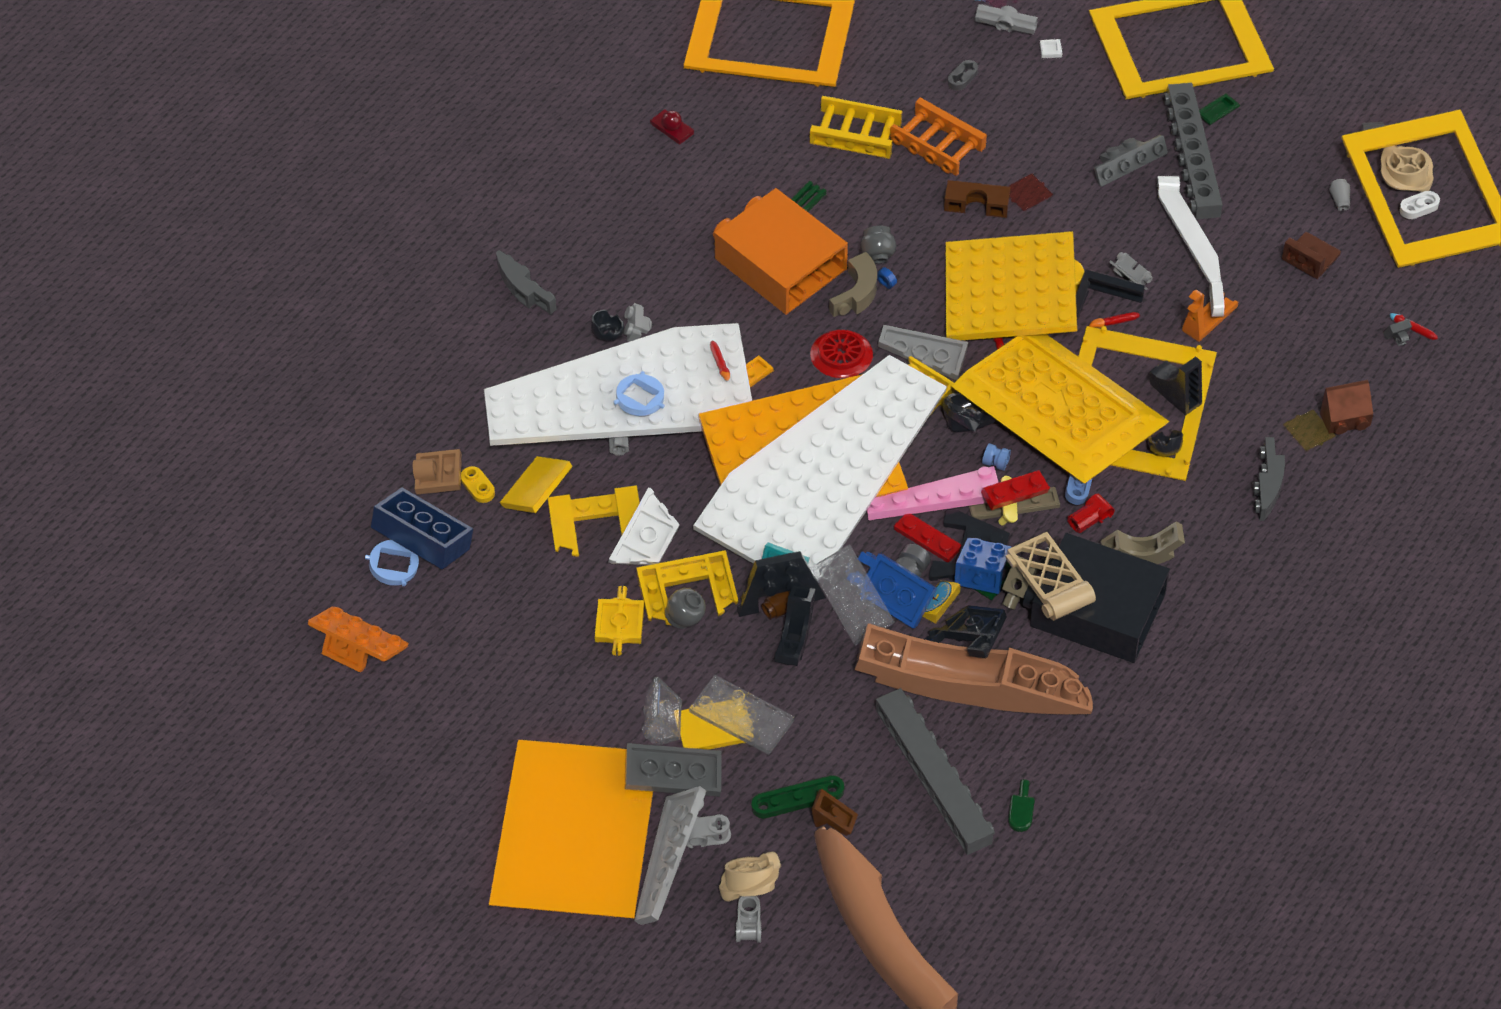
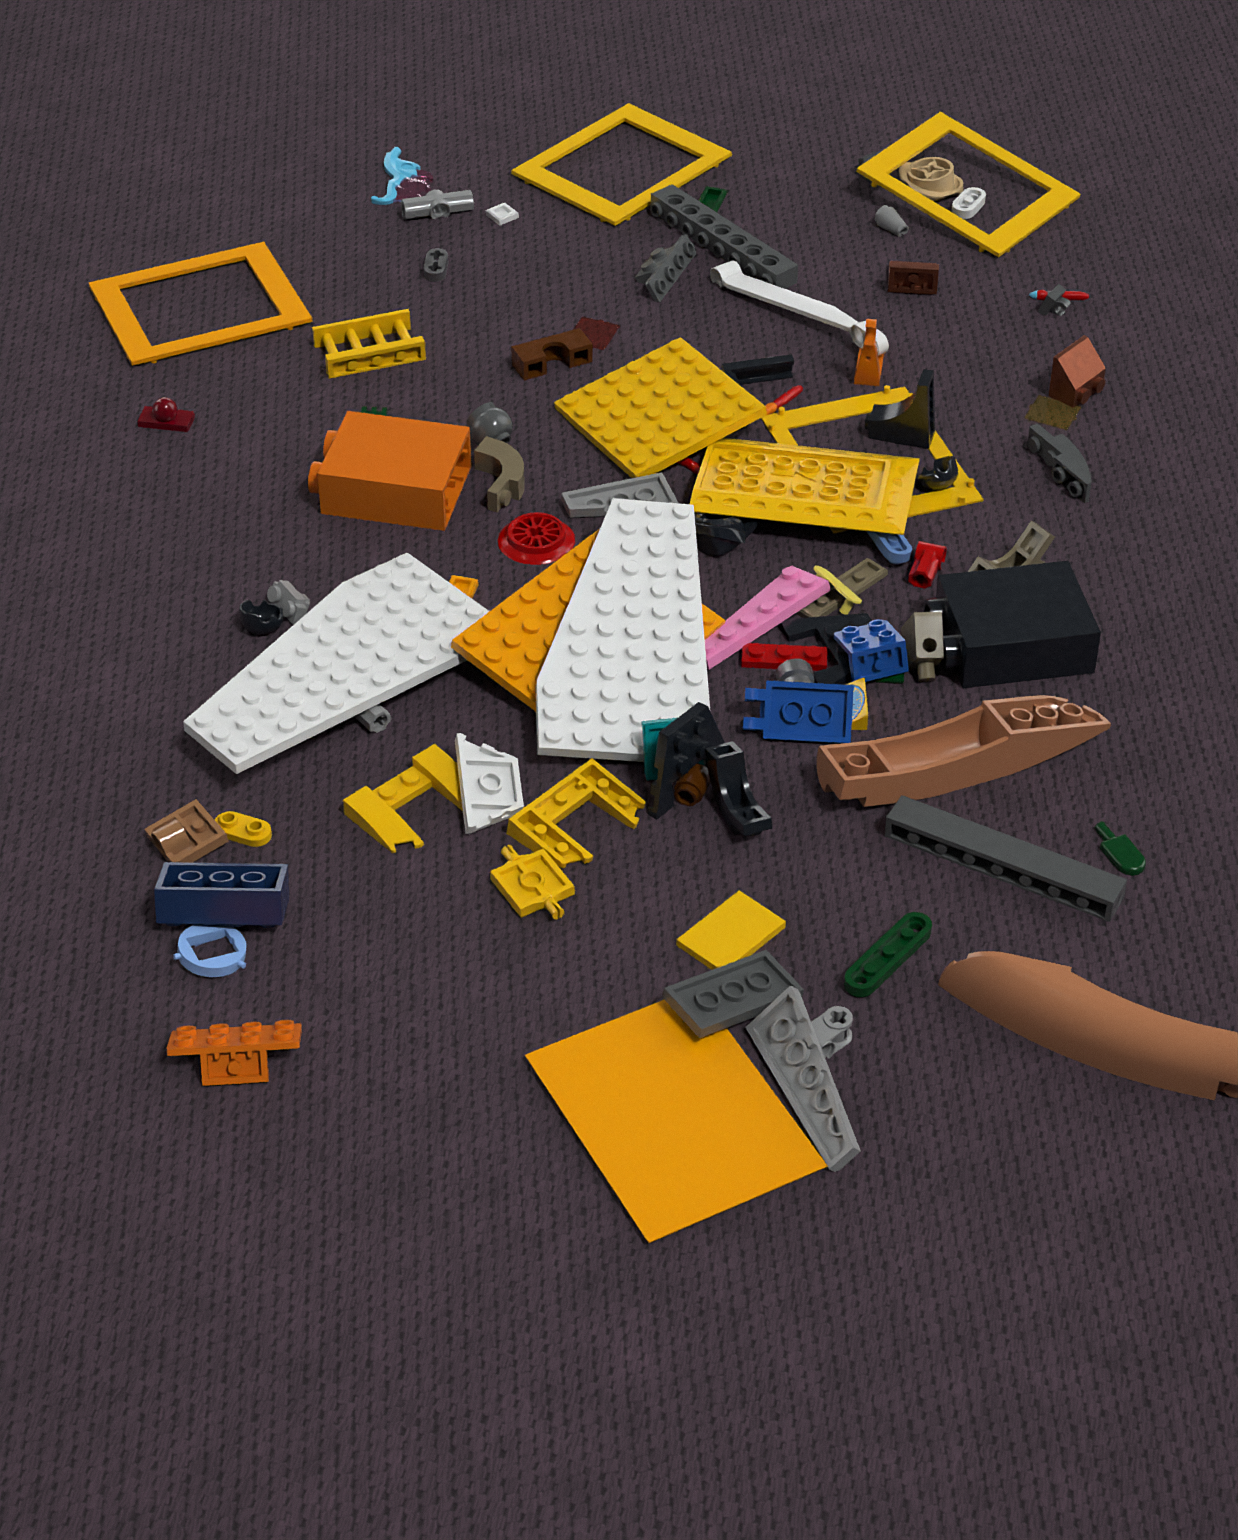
camera: 35 degrees left, 10 degrees down
(519, 282) = (121, 619): dark grey slope -> none
(536, 484) = (316, 795): yellow tile -> none
(648, 384) = (371, 637): light blue piece -> none
(662, 714) = (668, 944): clear slope -> none
(685, 608) = (600, 831): dark grey piece -> none
(723, 370) = (439, 594): red piece -> none
(741, 714) = (754, 904): clear tile -> none
(748, 923) = (956, 1098): light grey piece -> none
(749, 876) = (922, 1051): tan piece -> none
(833, 812) = (940, 947): reddish brown slope -> none
(851, 593) = (769, 735): clear tile -> none
(886, 278) = (527, 451): blue tile -> none
(940, 121) = (462, 305): orange fence -> none
(974, 625) = (919, 704): black wing -> none
(996, 457) = (786, 555): medium blue wheel -> none
(1015, 490) = (839, 571): red plate -> none
(1061, 600) = (1000, 626): tan piece -> none
(1125, 266) = (753, 349): light grey hinge -> none

